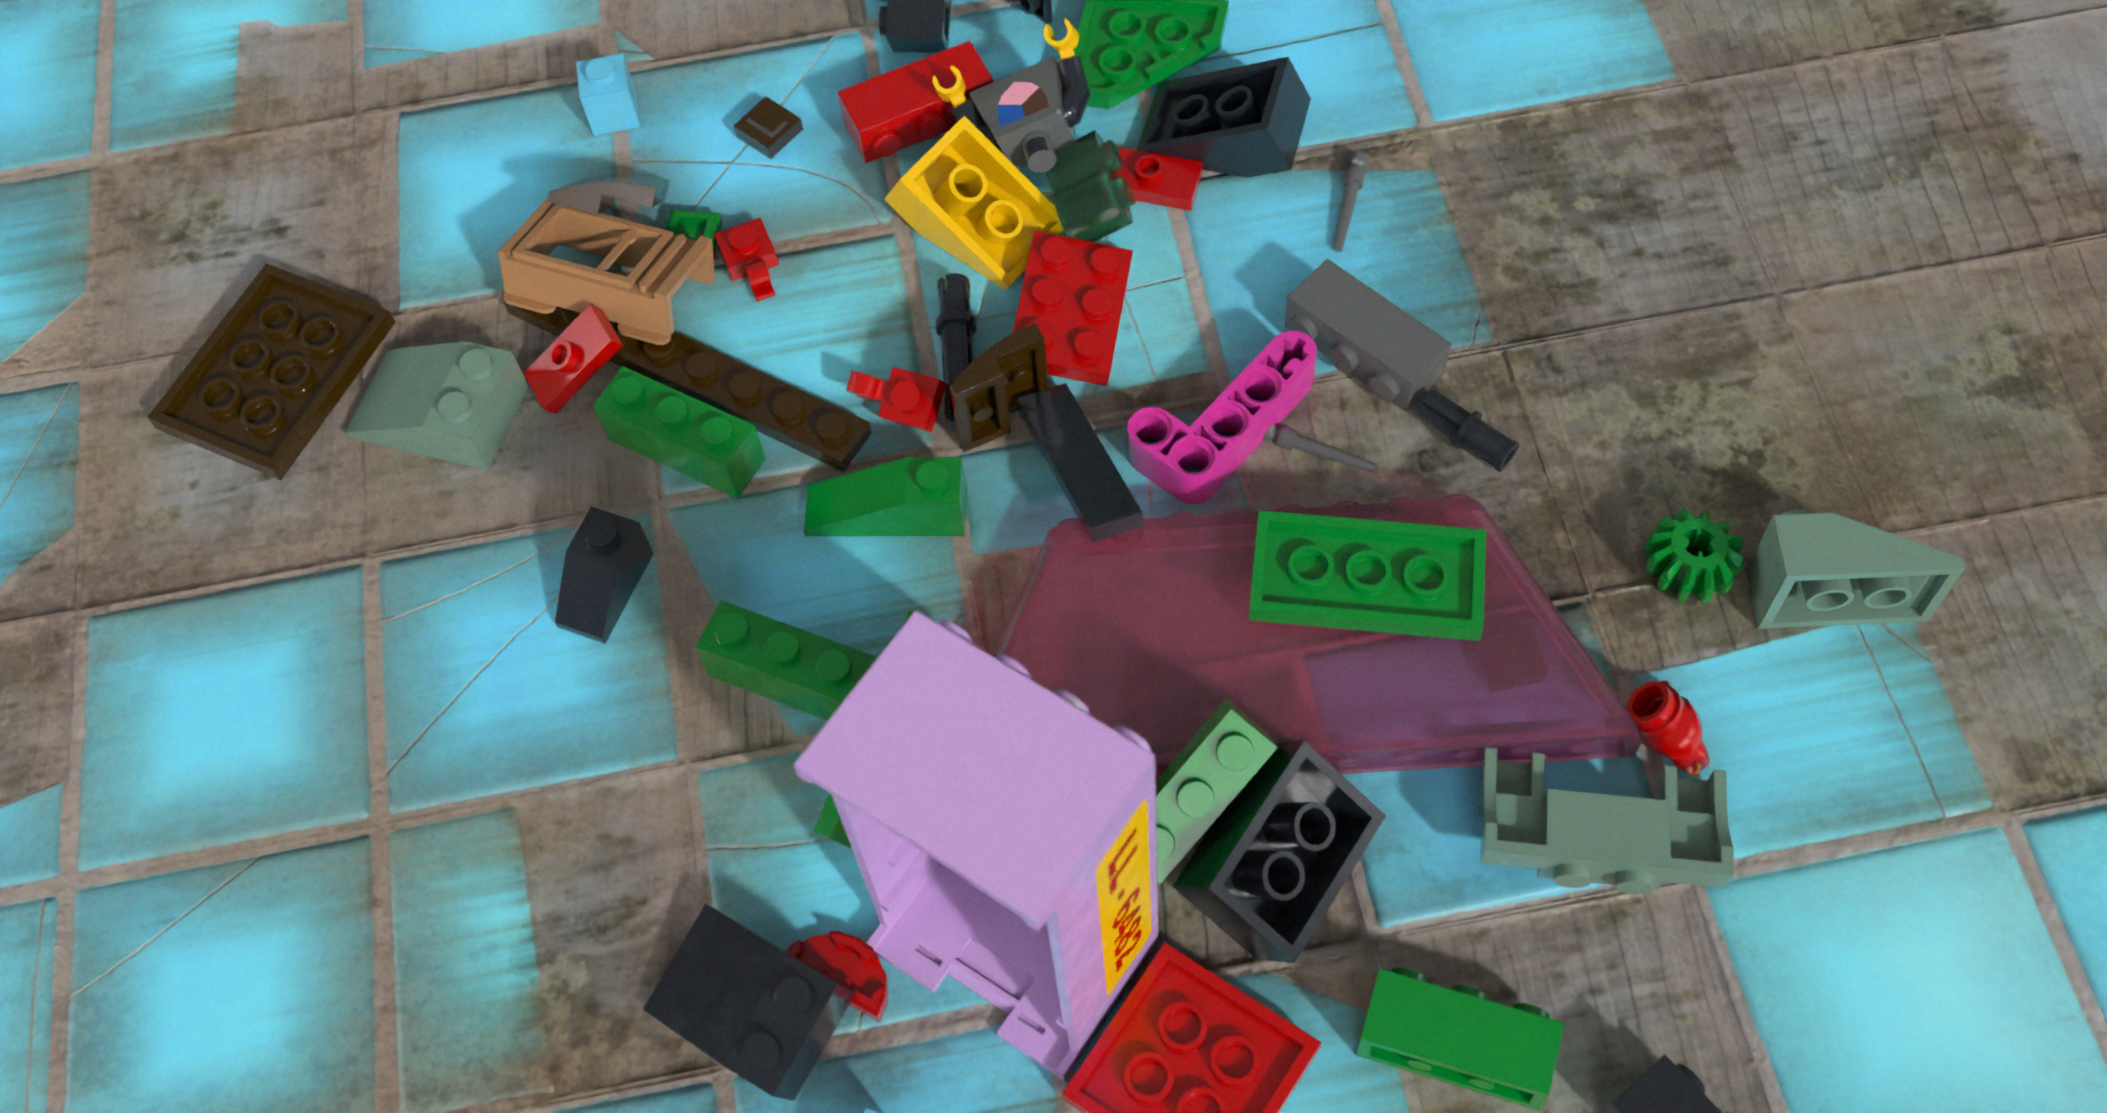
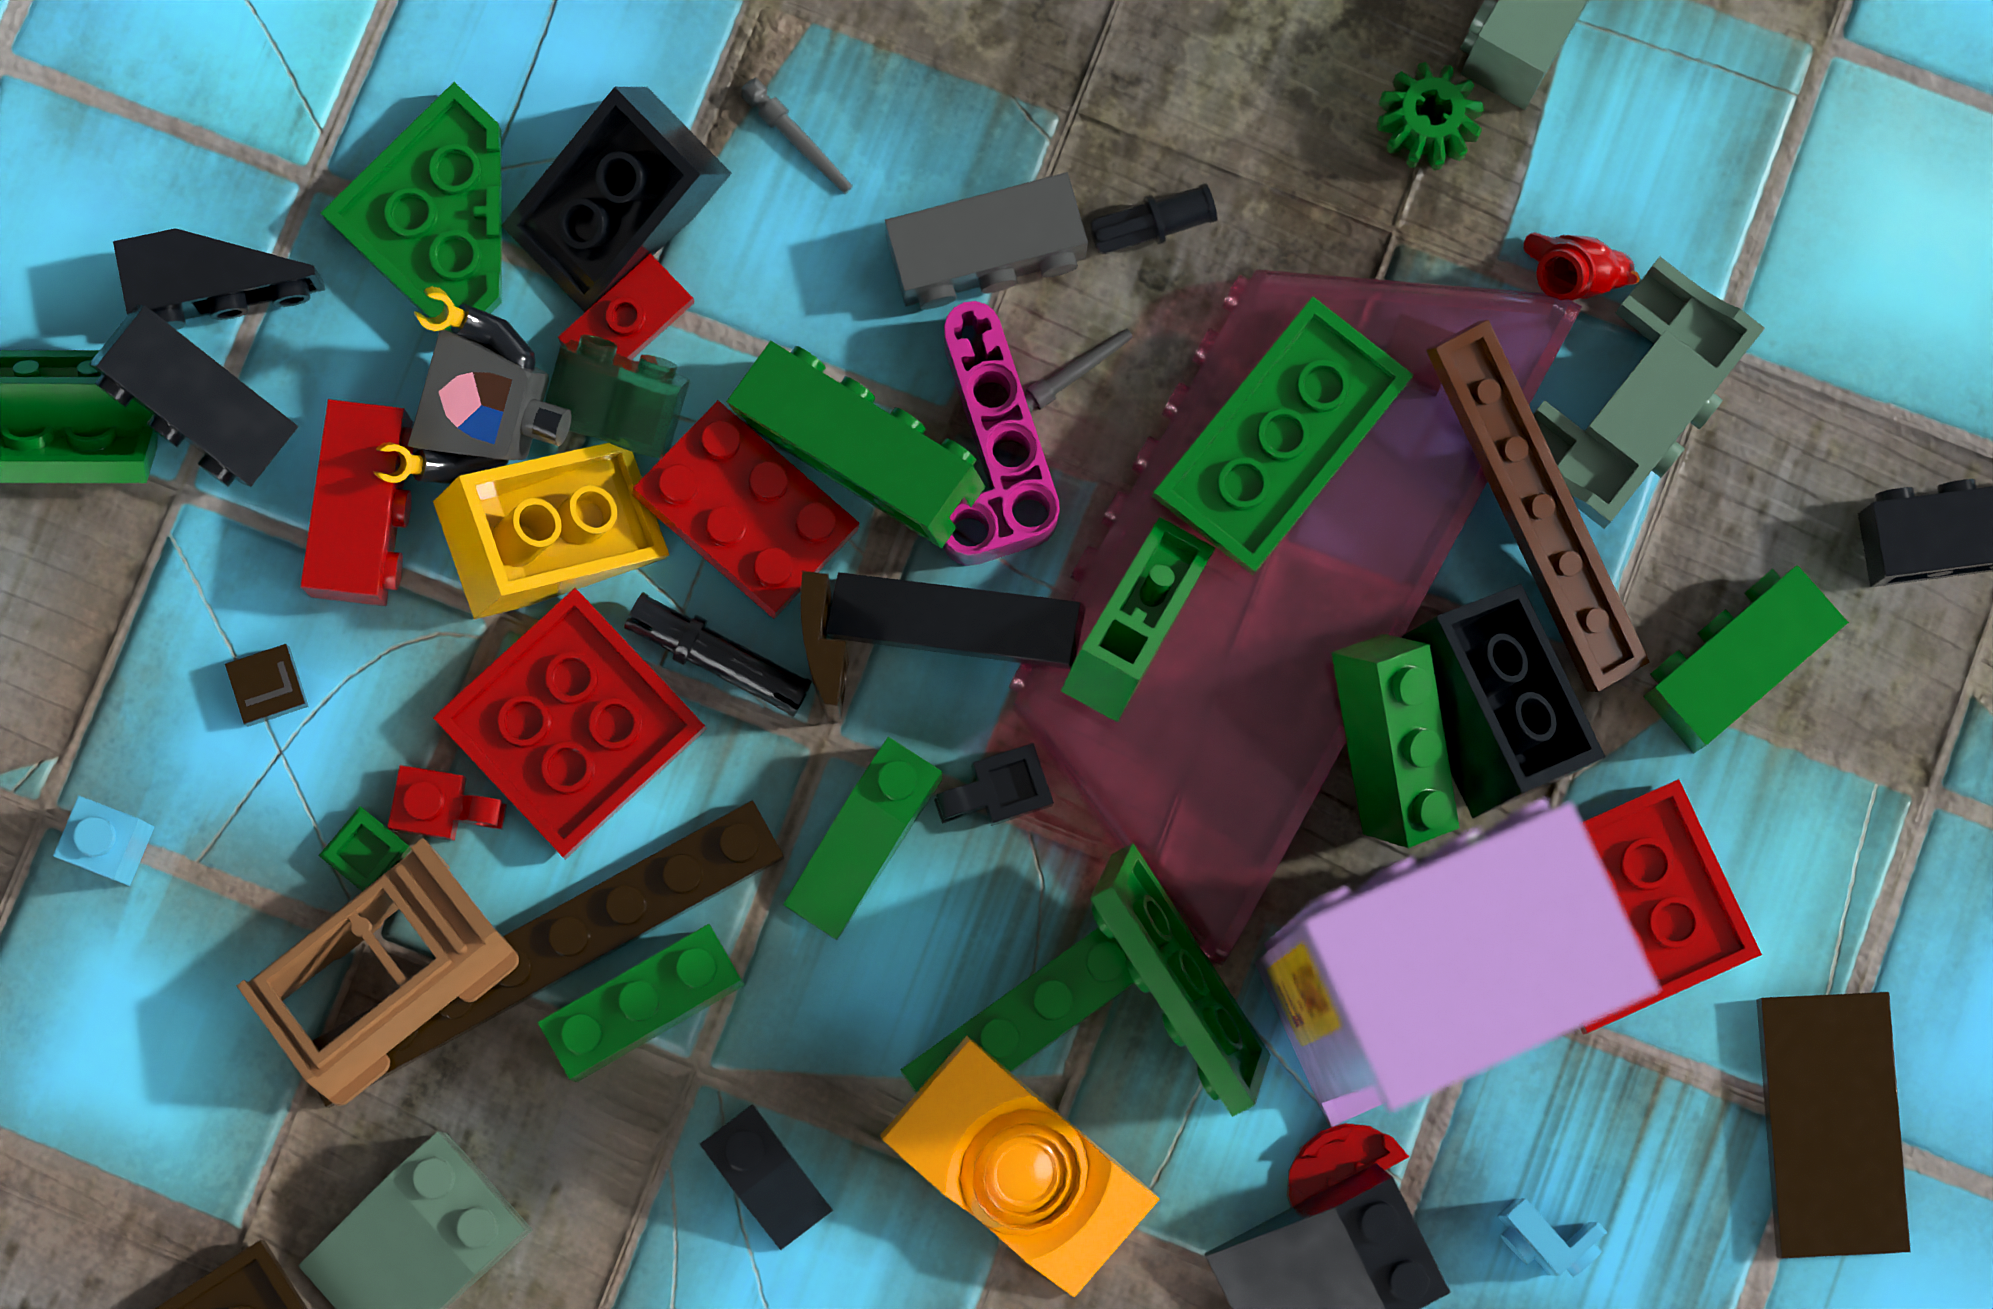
camera: 70 degrees left, 20 degrees up
(573, 359) = (470, 1069): red plate -> none
(599, 192) = (264, 910): slope -> none
(694, 728) = (1019, 1167): none -> light orange slope
(851, 292) = (570, 723): none -> red plate
(905, 398) = (750, 744): red plate -> none
(979, 568) = (1004, 785): none -> black plate
(1153, 554) = (1137, 619): none -> green slope
(1158, 328) = (856, 442): none -> green brick
(1454, 792) = (1537, 505): none -> reddish brown plate

